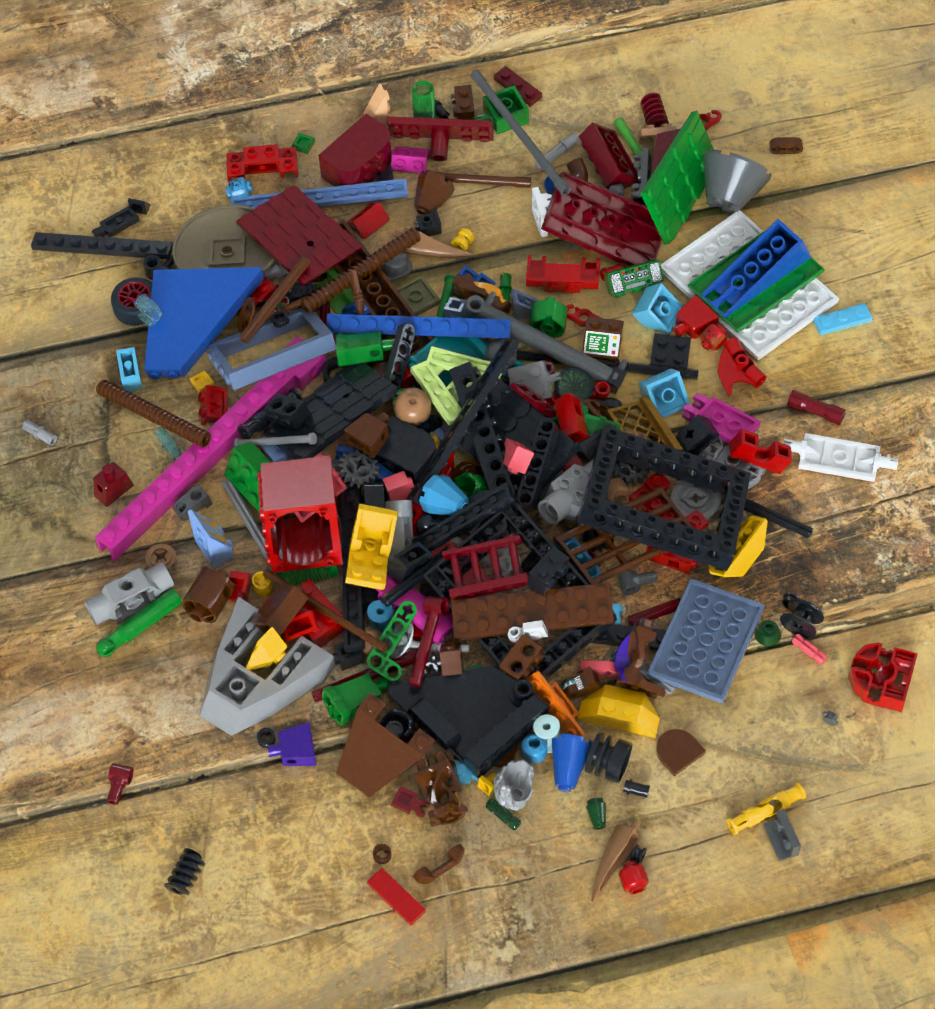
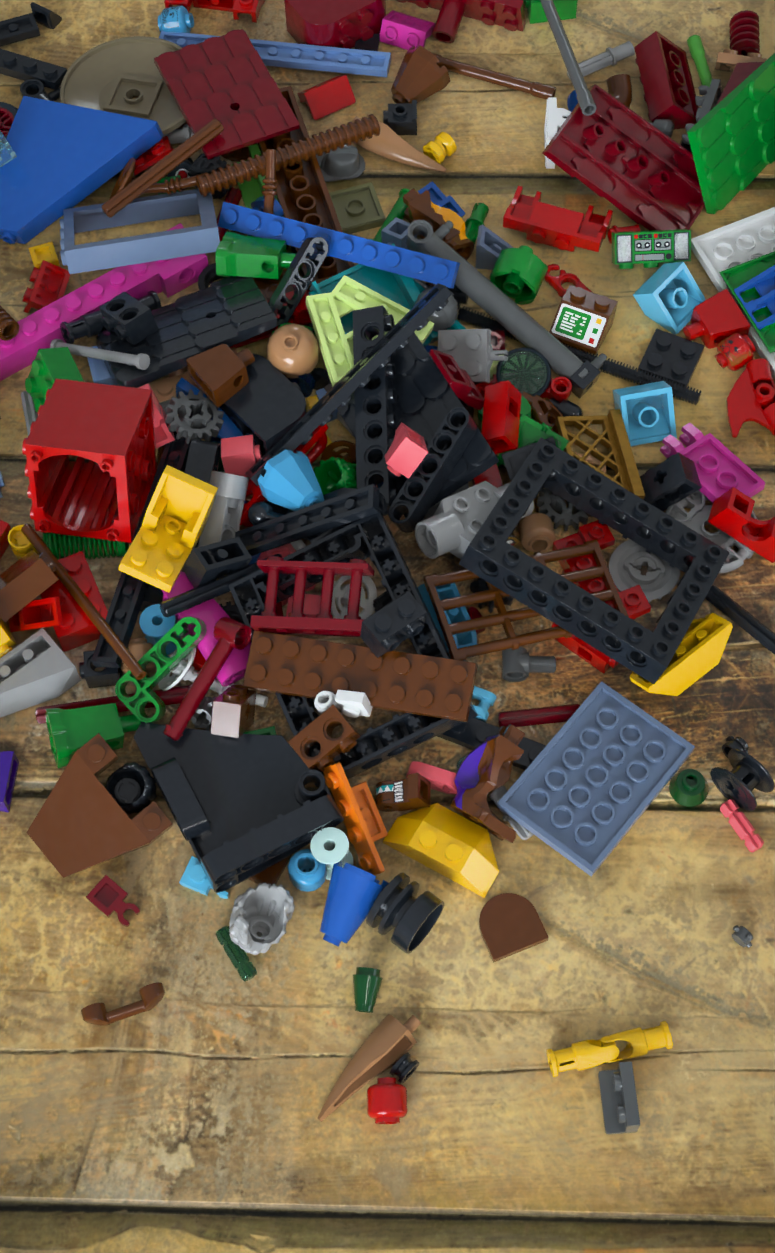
camera: 15 degrees right, 5 degrees up
(280, 318) = (164, 195): black bush -> none
(377, 858) = (44, 971): reddish brown bush -> none
(396, 896) = (49, 1034): red tile -> none
(437, 776) = (166, 885): reddish brown hips -> none
(487, 784) = (226, 902): yellow piece -> none
(636, 788) = (433, 967): black pin -> none

